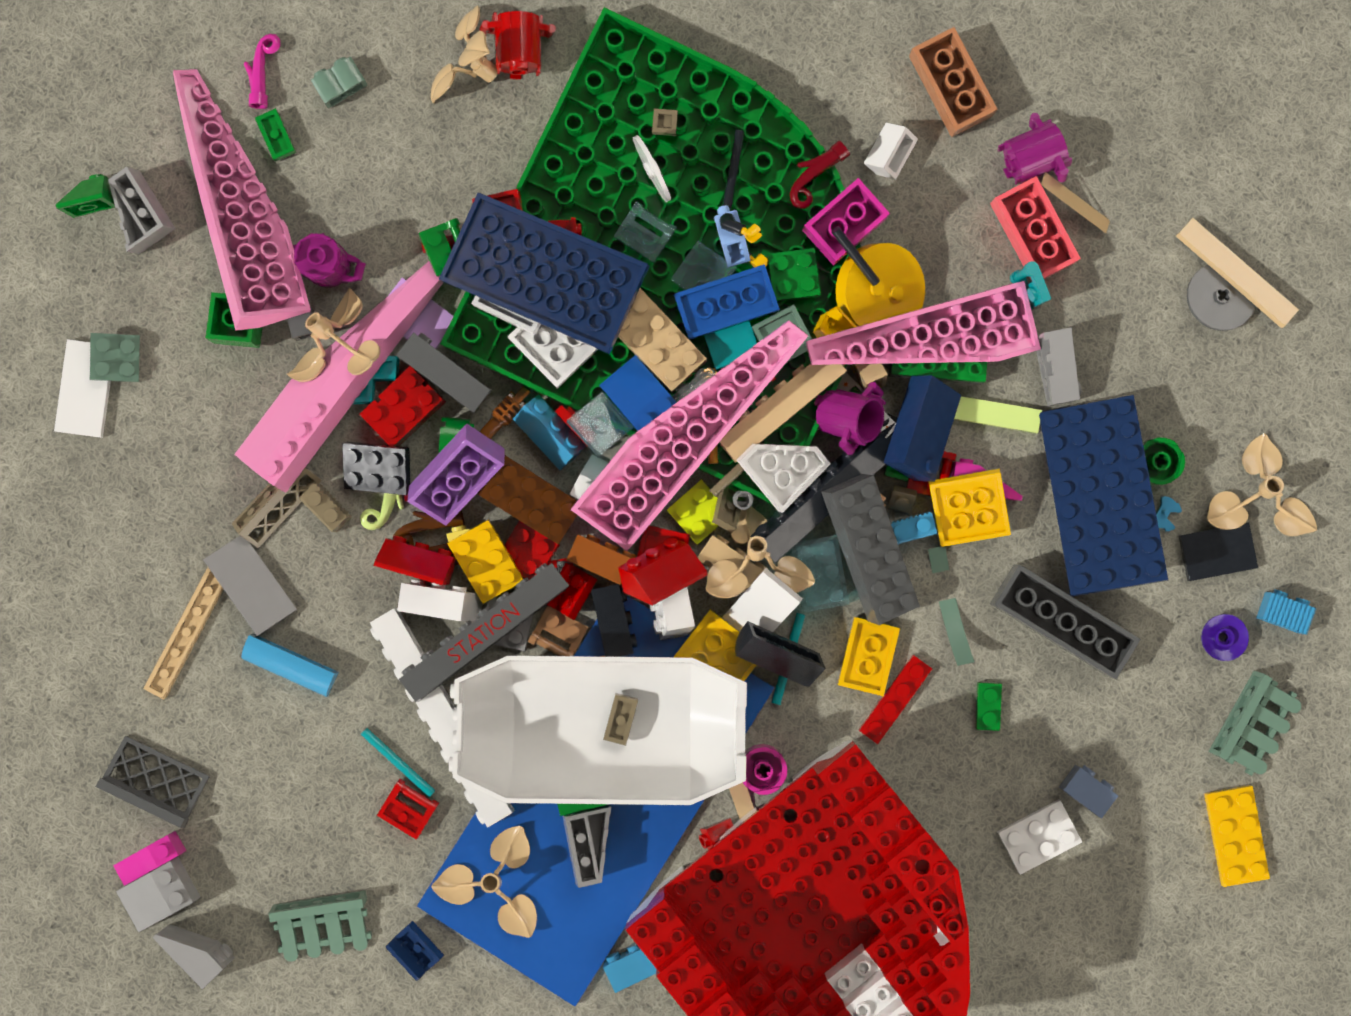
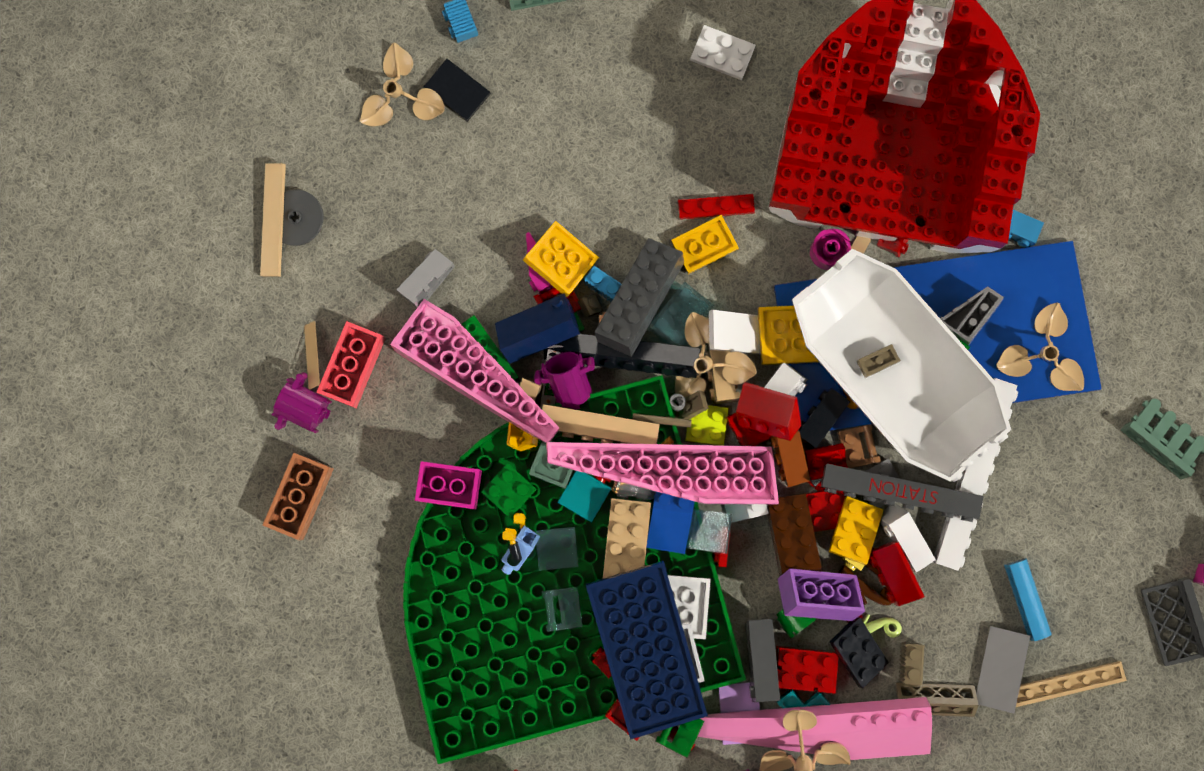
camera: 135 degrees left, 5 degrees down
(398, 762) = (1025, 478): teal bar -> none
(404, 816) = (1055, 446): red plate -> none
(414, 950) = (1129, 366): dark blue bracket -> none
(505, 412) = (751, 601): dark orange hinge -> none
(549, 432) = (740, 561): dark azure brick -> none
(651, 168) = (520, 638): white piece -> none
(664, 122) = (480, 657): dark tan plate -> none
(726, 302) = (564, 517): blue plate -> none
(733, 168) = (473, 587): black bar -> none
(778, 654) = (753, 298): black brick -> none
(783, 470) = (638, 391): white plate -> none
(794, 636) = (748, 292): teal bar -> none
(837, 153) = (427, 535): dark red plant -> none
(855, 256) = (466, 459): black bar -> none
(890, 150) = (370, 503): white brick -> none
(899, 288) = (468, 432): yellow brick -> none
(950, 612) = (635, 216): sand green sticker -> none
(988, 706) = (671, 147): green plate -> none
(998, 414) = (486, 291): yellowish green tile -> none
(1037, 289) = (388, 332): teal plate -> none
(1065, 621) = (580, 144): dark grey brick -> none
(1088, 791) = (670, 46): sand blue brick -> none
(1103, 496) = (484, 184): dark blue plate -> none
(1167, 505) = (466, 140): dark azure piece -> none
(1169, 455) = (441, 163): green brick -> none
(1236, 637) = (506, 34): dark purple dish -> none

